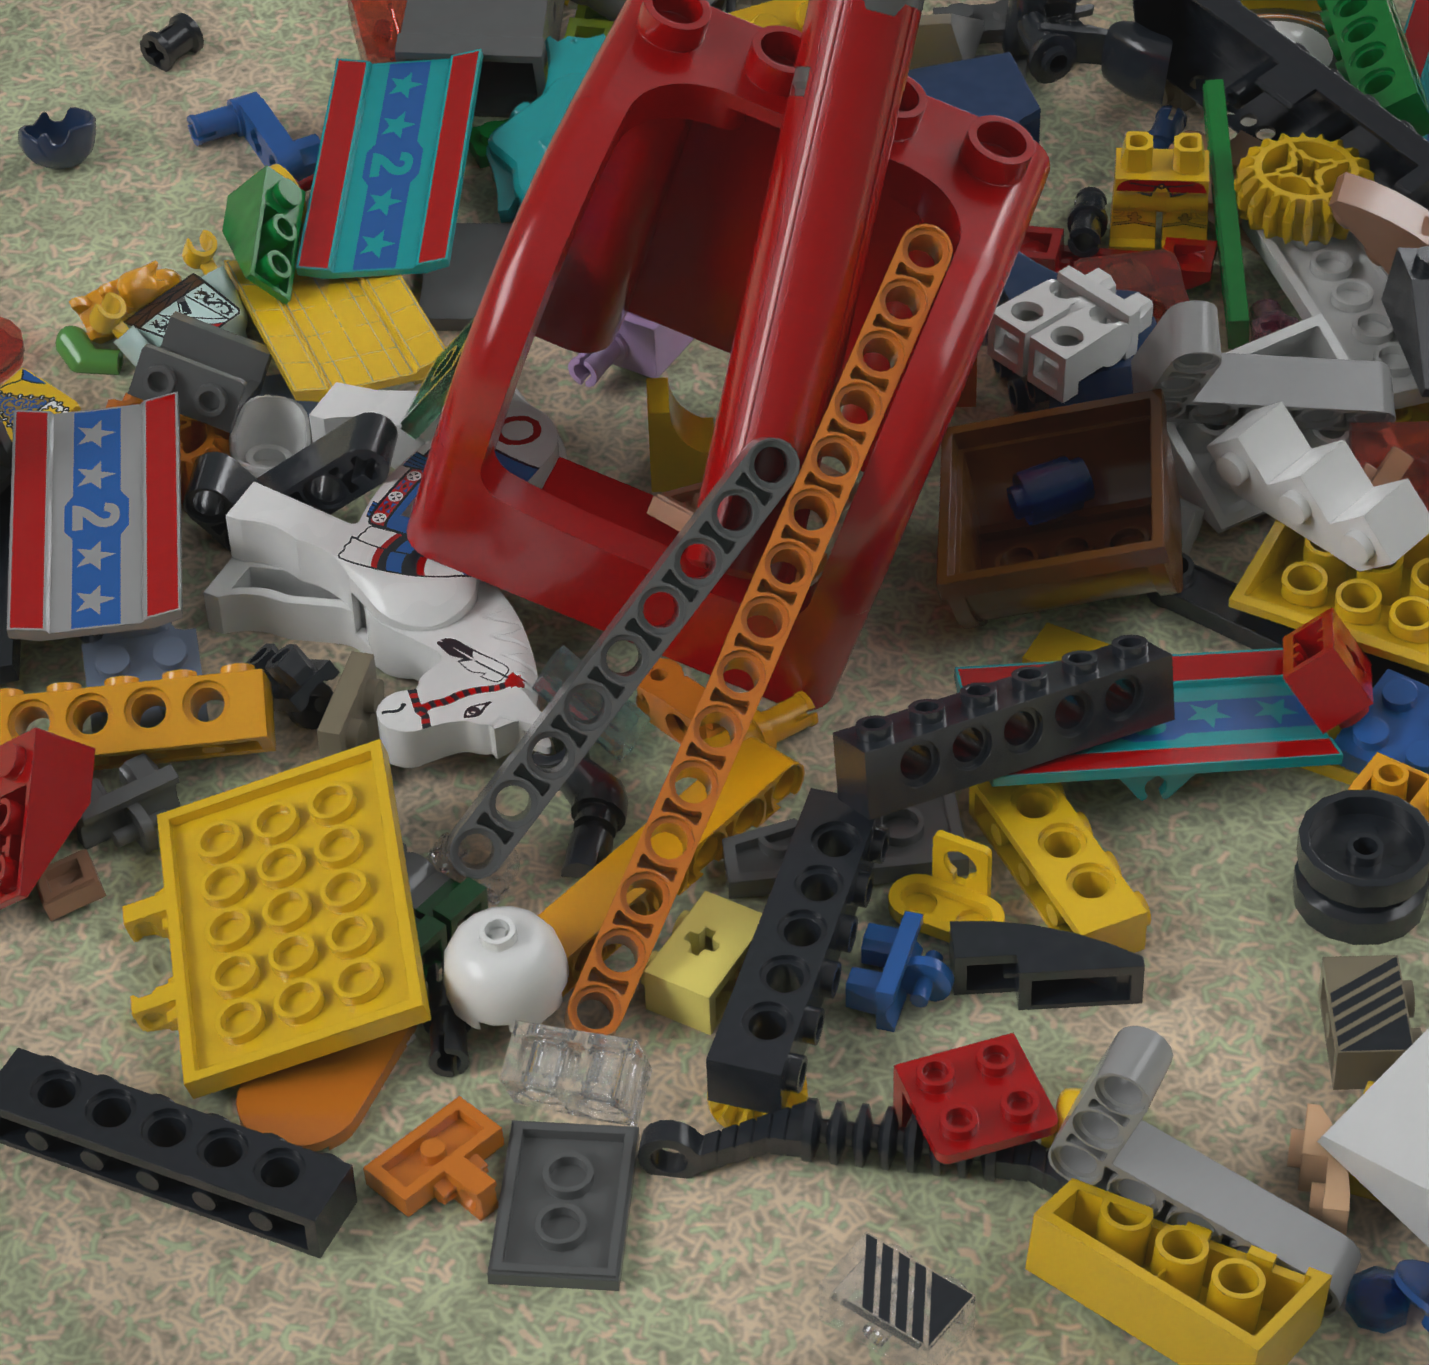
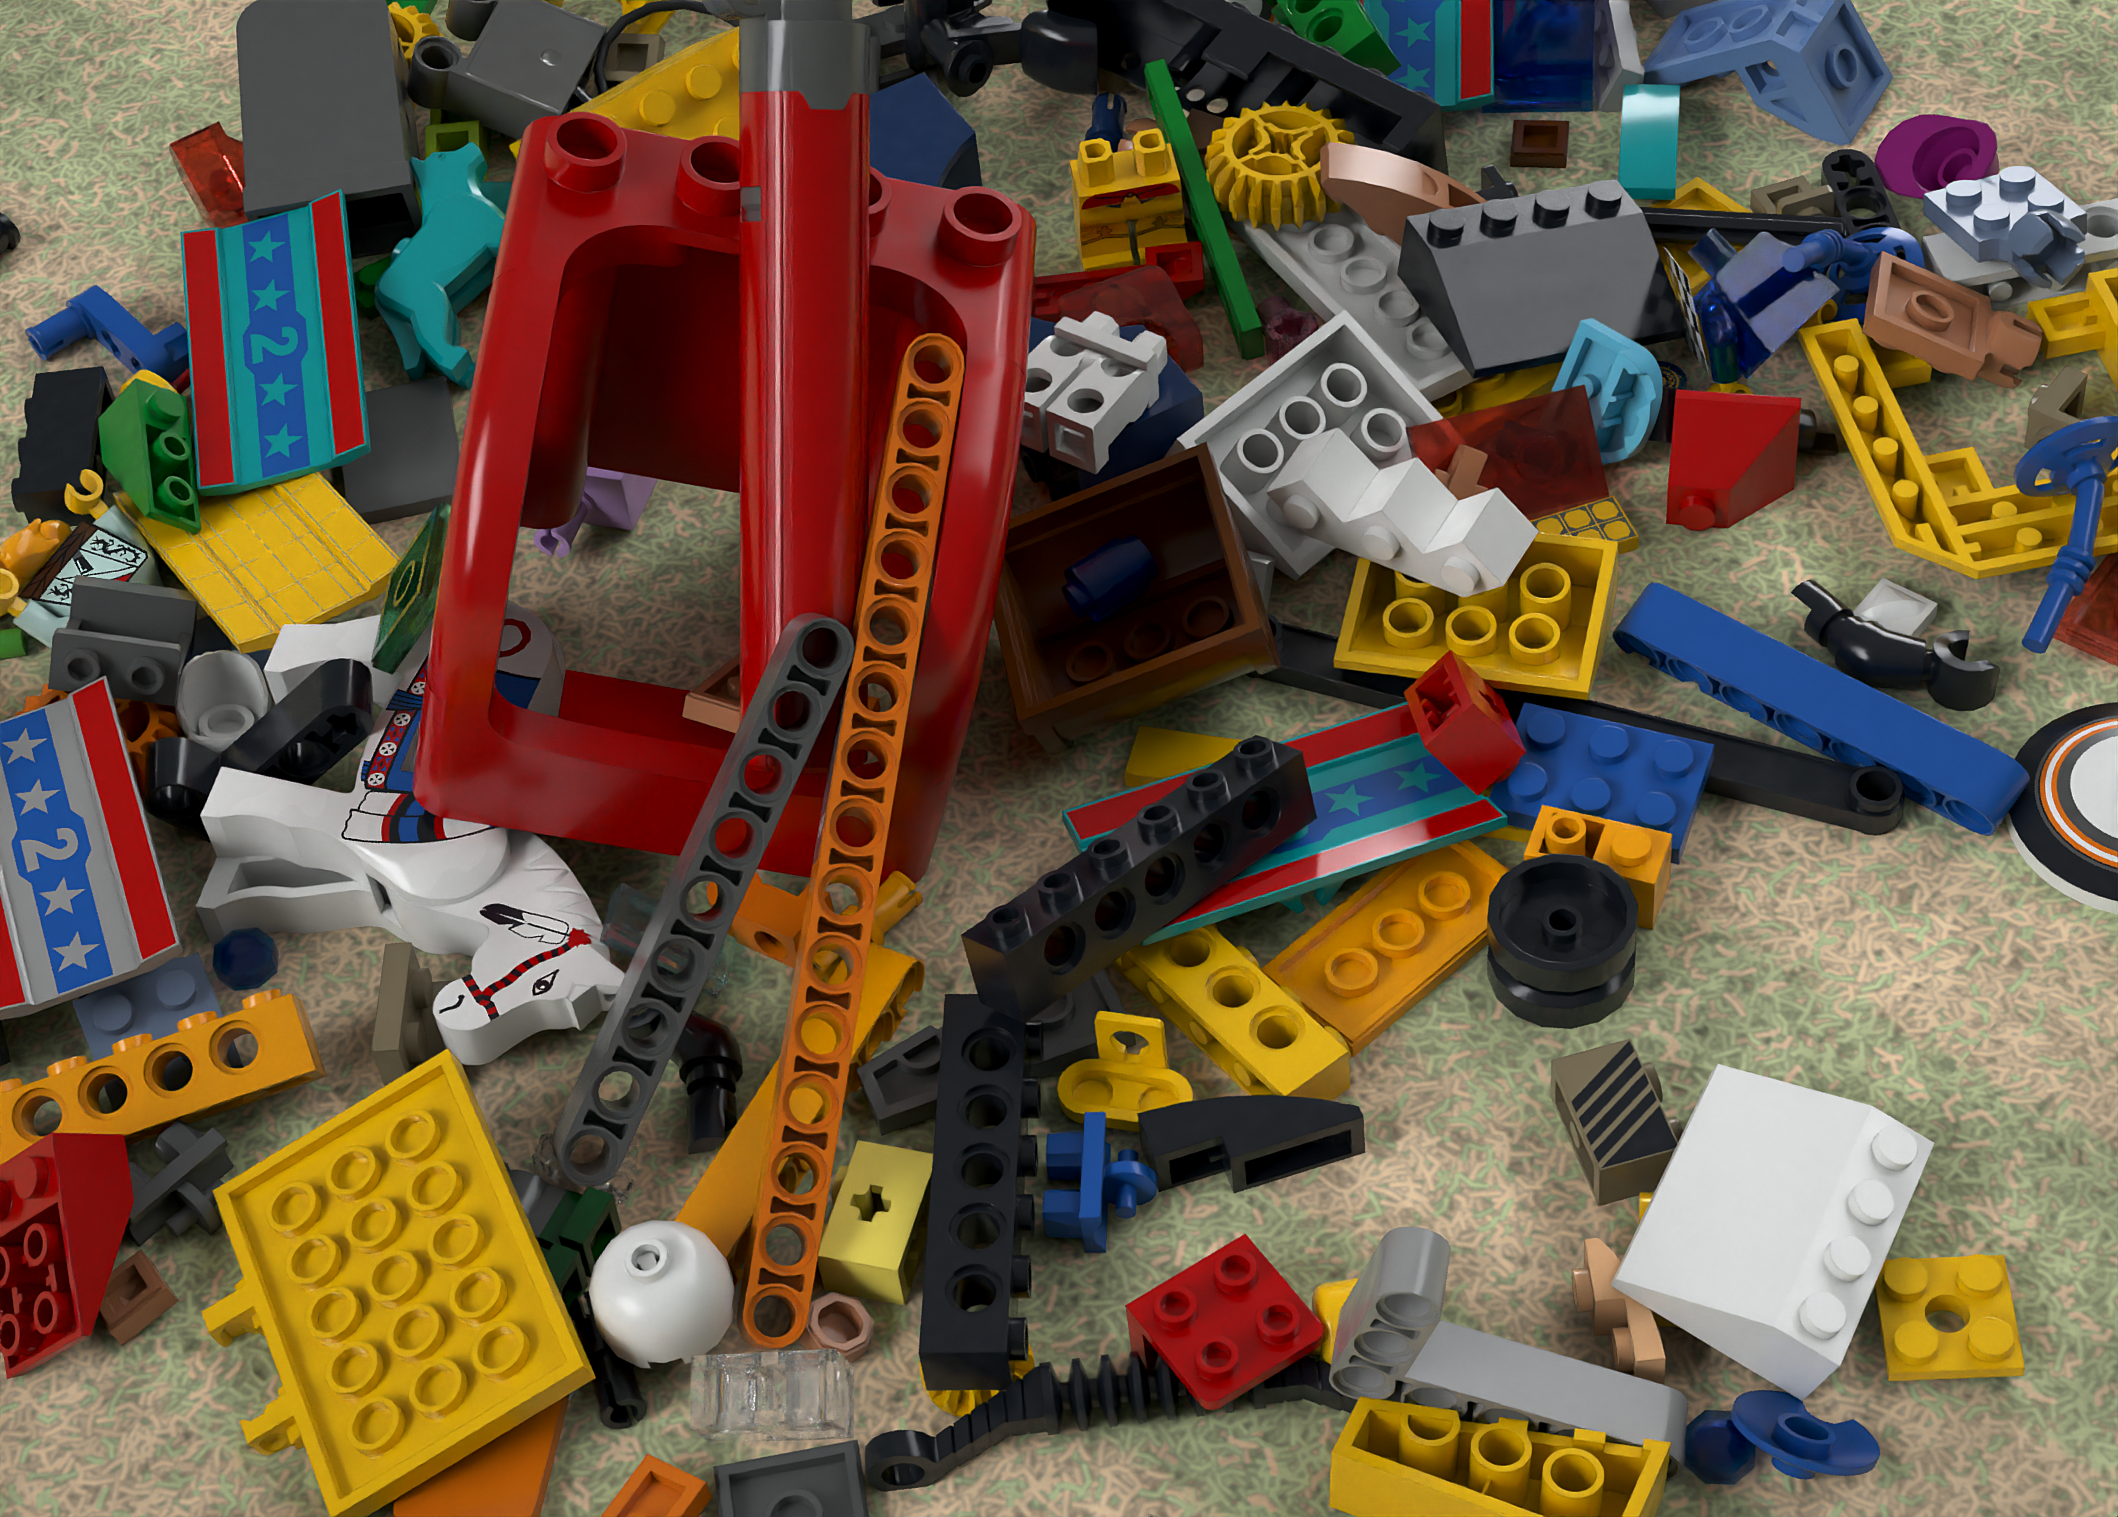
camera: 10 degrees left, 5 degrees up
(192, 204) = (61, 442): none -> black brick
(232, 643) = (245, 959): none -> clear blue tile
(297, 682) = (332, 992): black hips -> none
(653, 1032) = (838, 1324): none -> nougat tile
(676, 439) = (683, 605): yellow arch -> none
(1087, 222) = (1054, 246): black pin -> none
(1214, 839) = (1391, 941): none -> light orange tile
(1221, 388) = (1260, 421): light grey beam -> none

